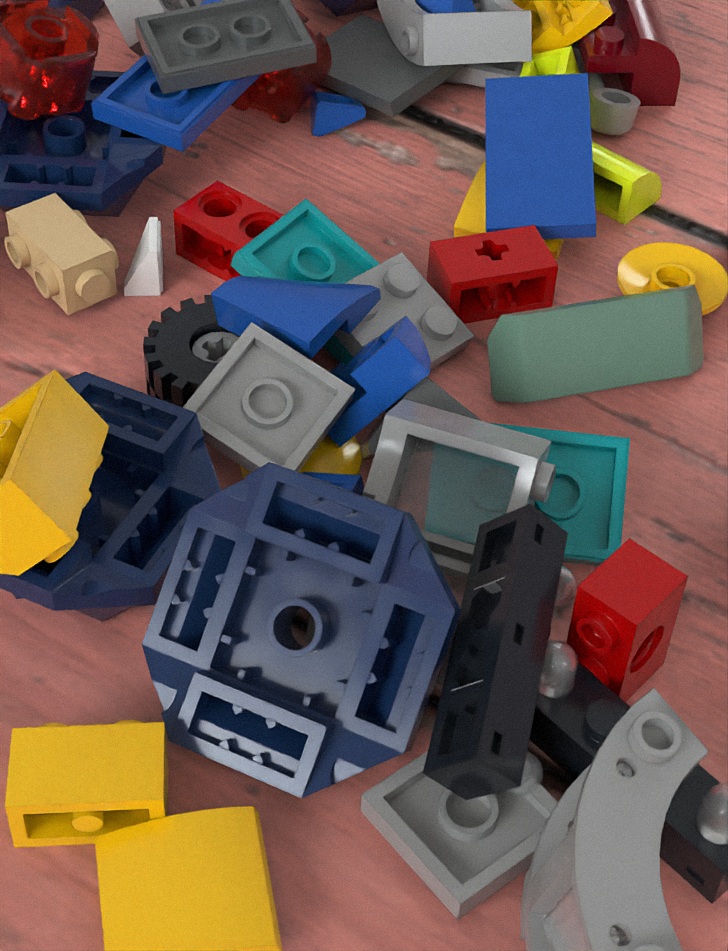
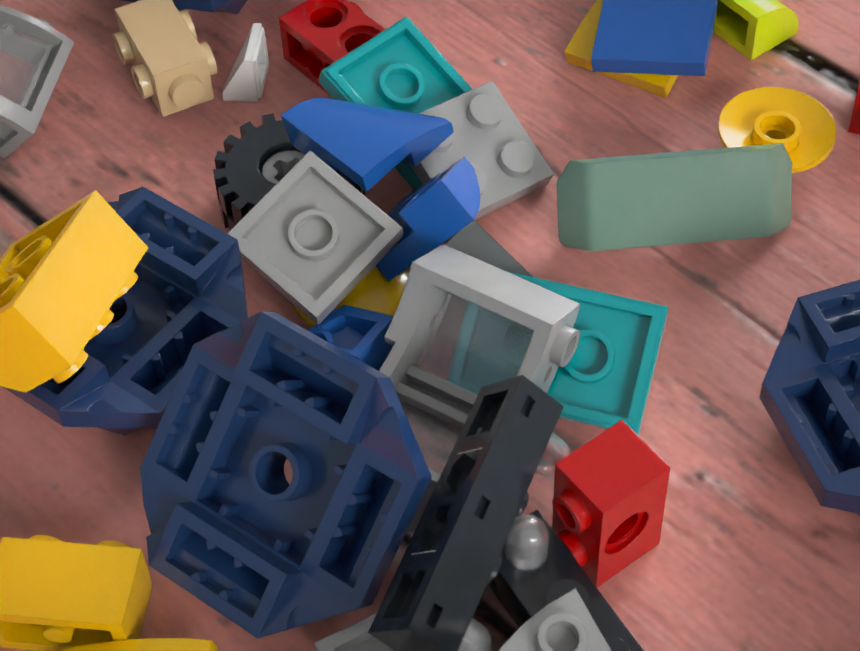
camera: 15 degrees right, 5 degrees up
(493, 273) = (588, 109): red brick -> none

